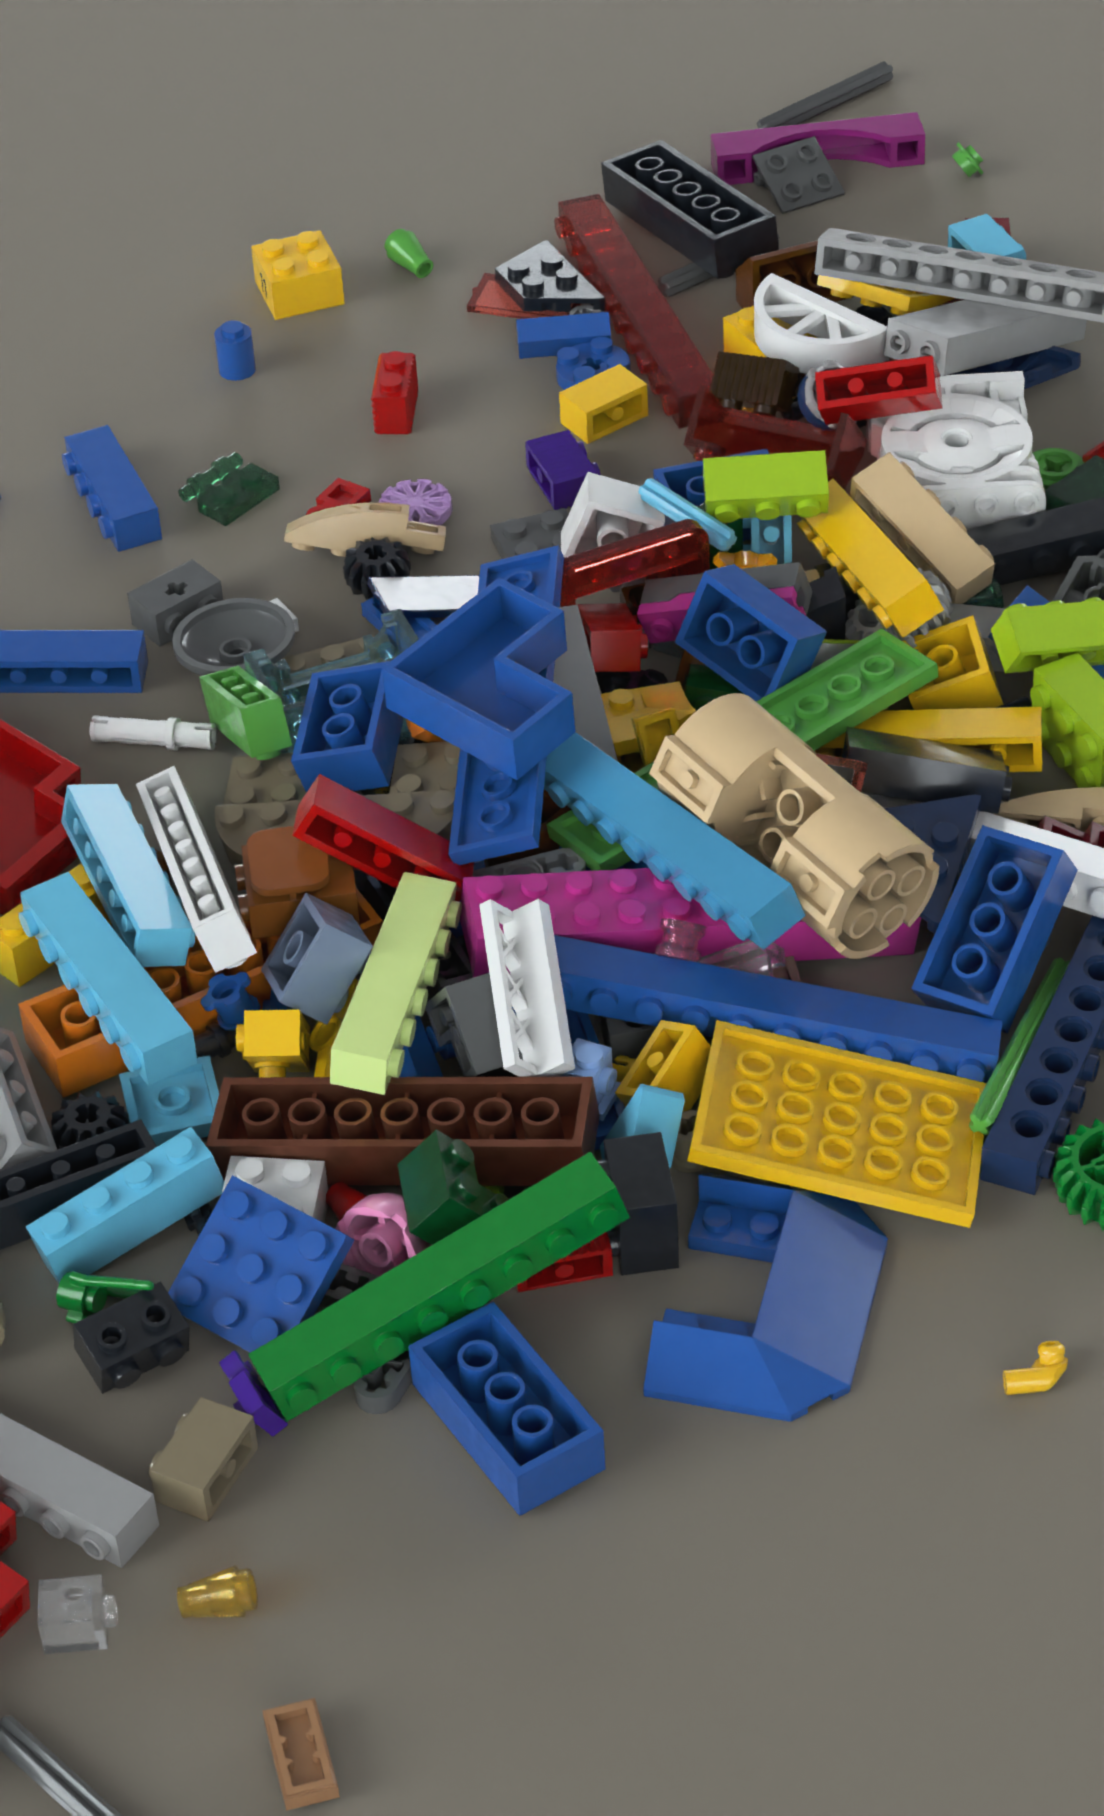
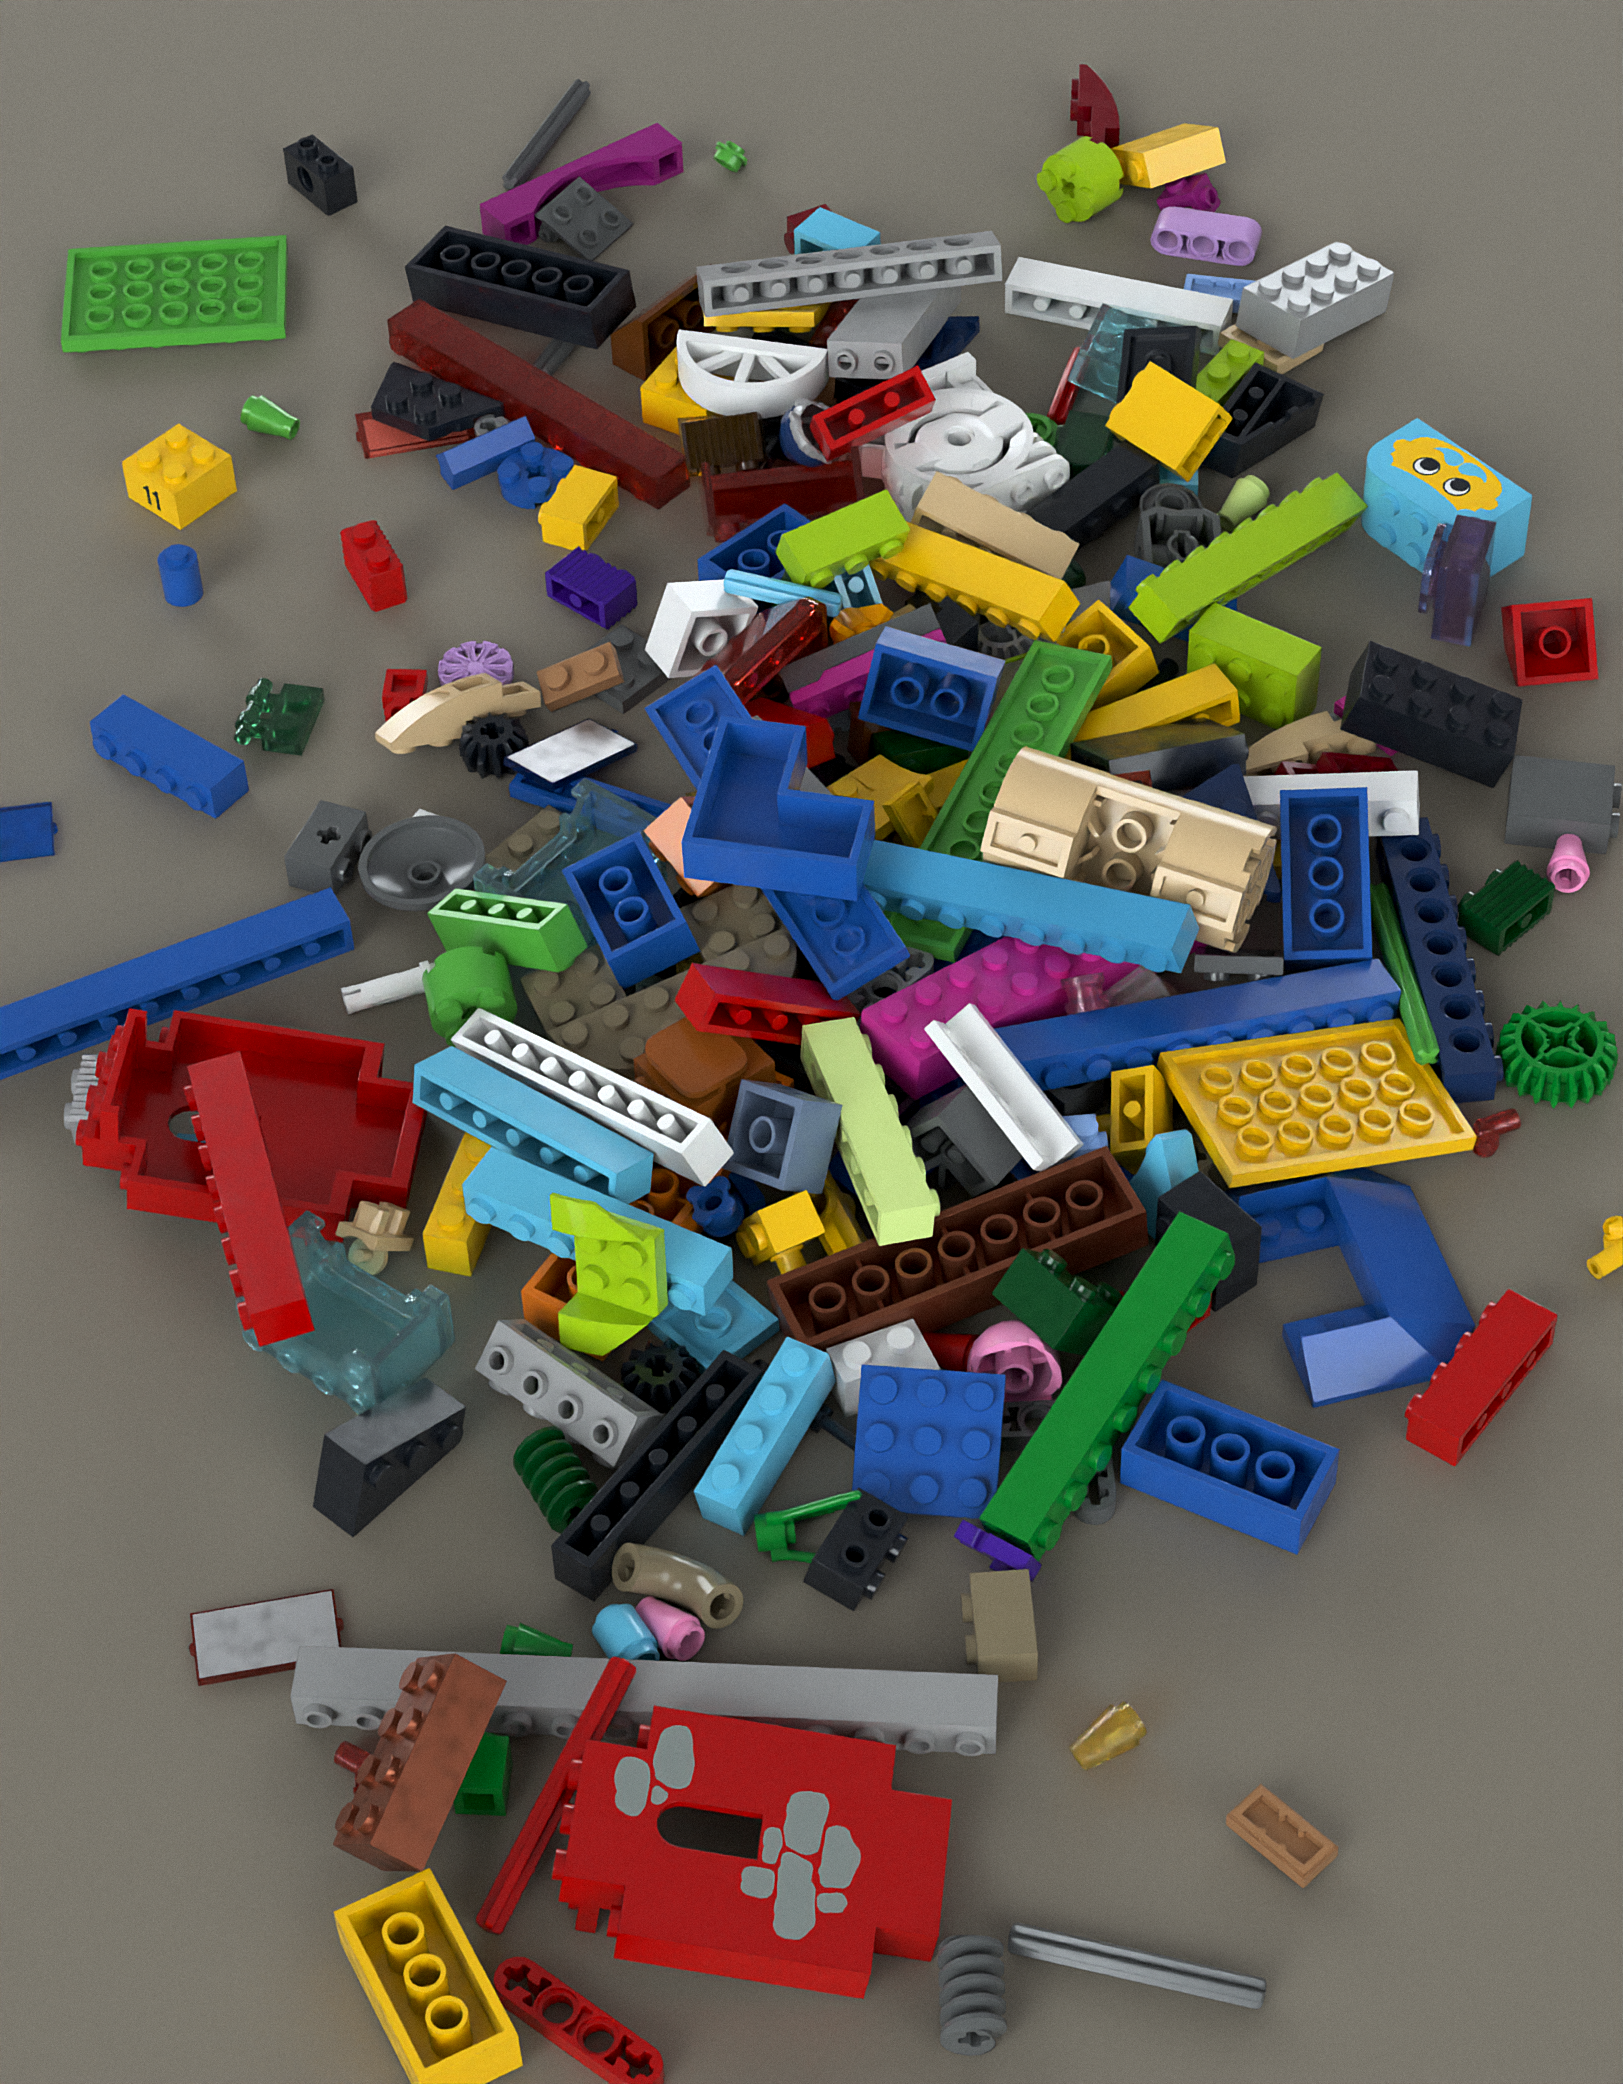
camera: 30 degrees left, 5 degrees up
(75, 1614) = (1001, 1810): clear brick -> none
(86, 1008) = (617, 1275): none -> lime piece
(189, 744) = (462, 984): none -> bright green brick
(415, 136) = (175, 294): none -> bright green plate
(491, 536) = (580, 676): none -> medium nougat plate
(603, 76) = (320, 175): none -> black brick
(811, 1431) = (1479, 1376): none -> red brick
(867, 975) = (1257, 963): none -> dark grey plate
(1000, 1218) = (1490, 1128): none -> clear red arm

